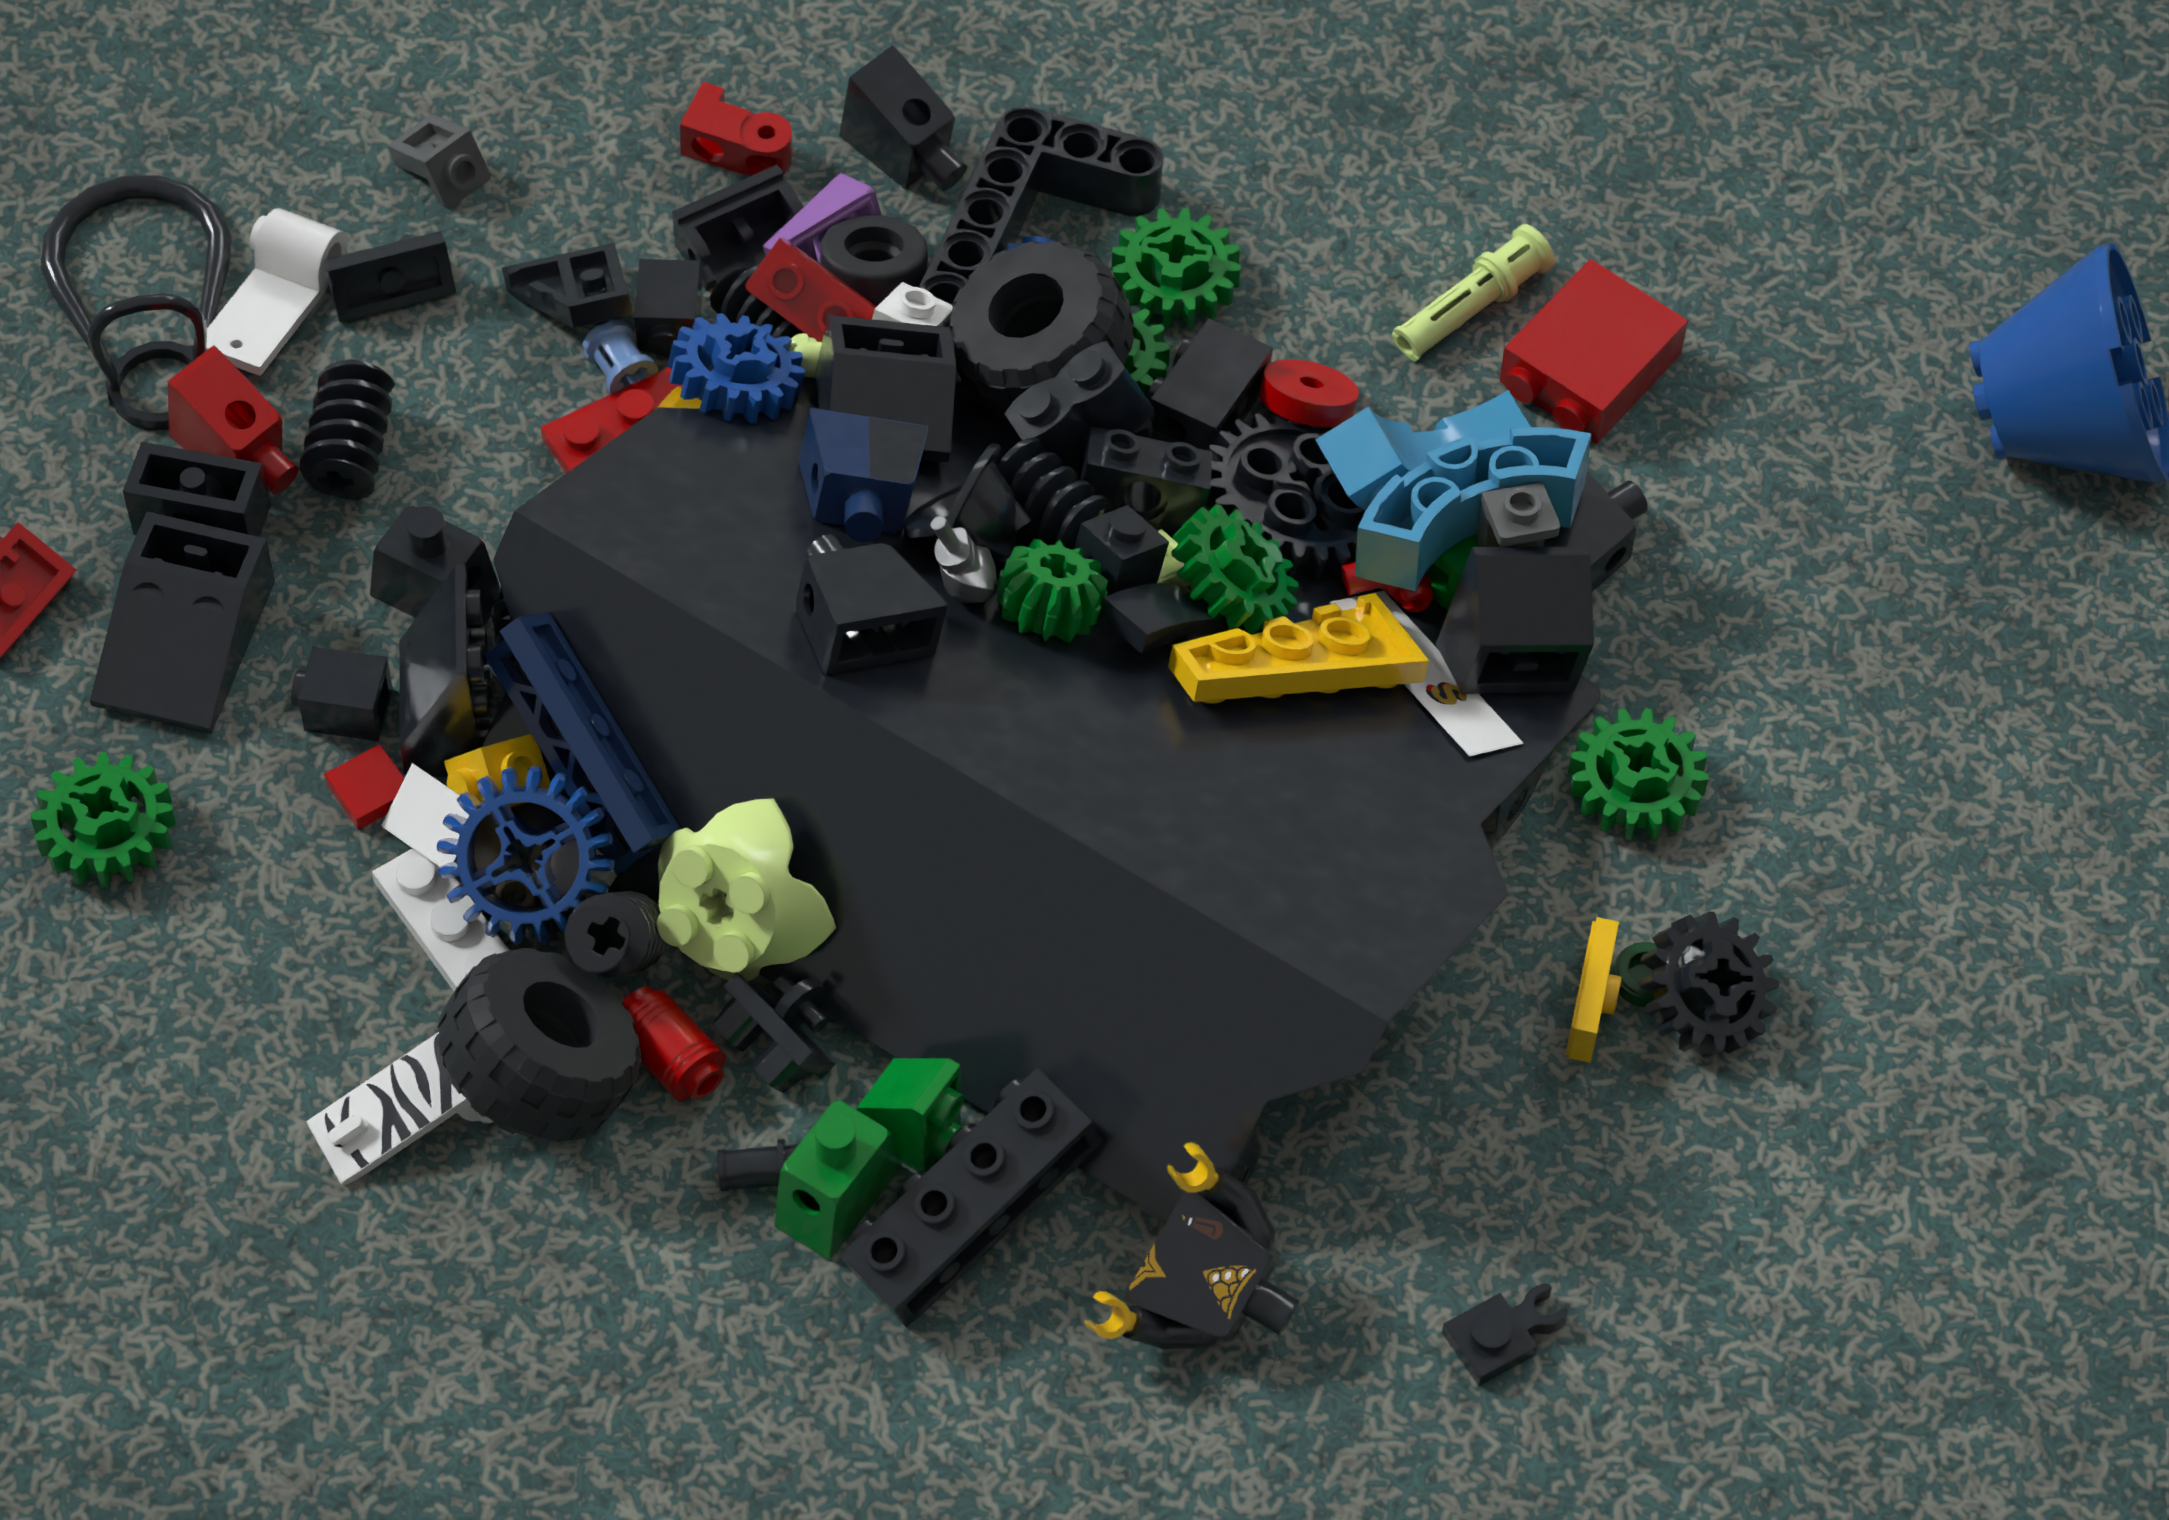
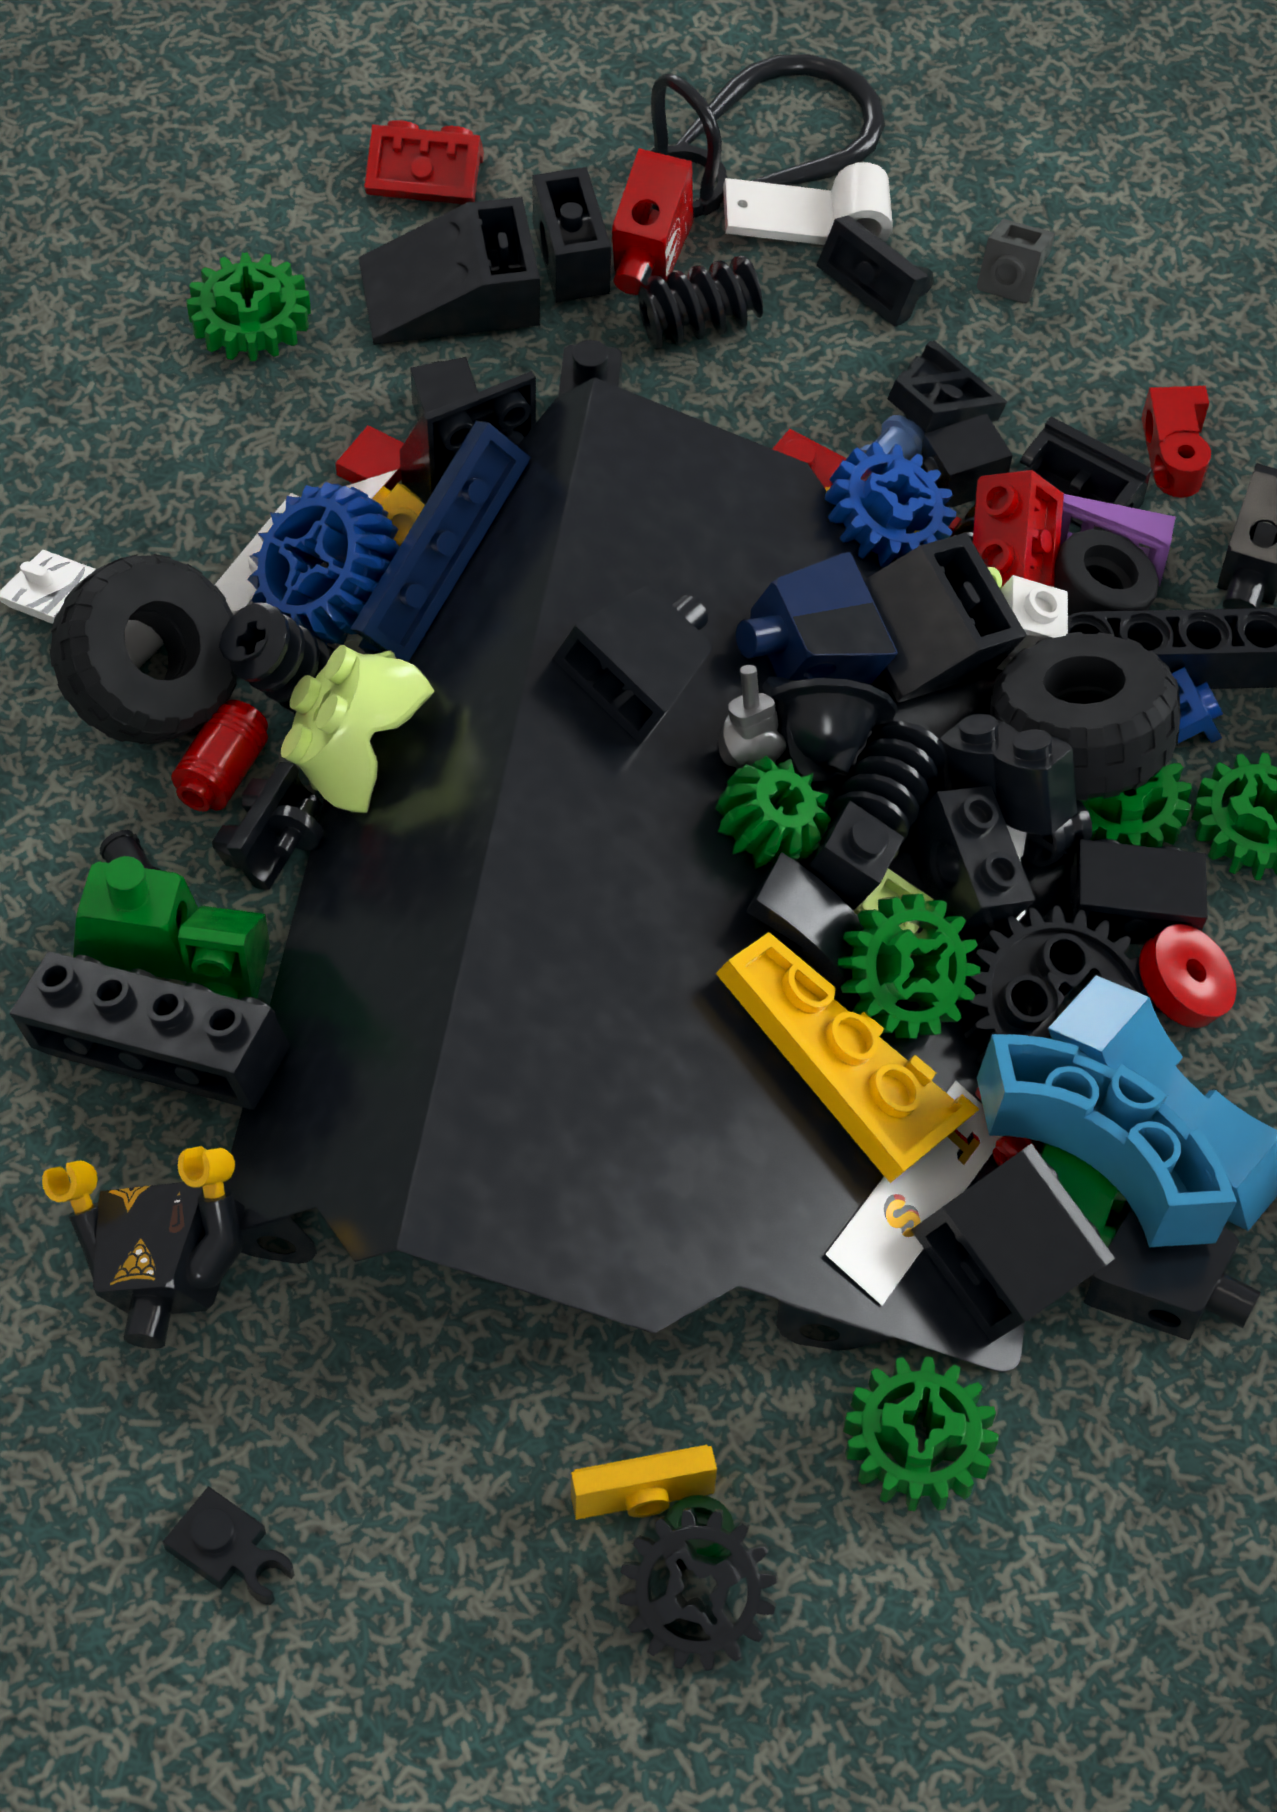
camera: 65 degrees right, 0 degrees up
(1516, 517) = (1105, 1181): dark grey bracket -> none

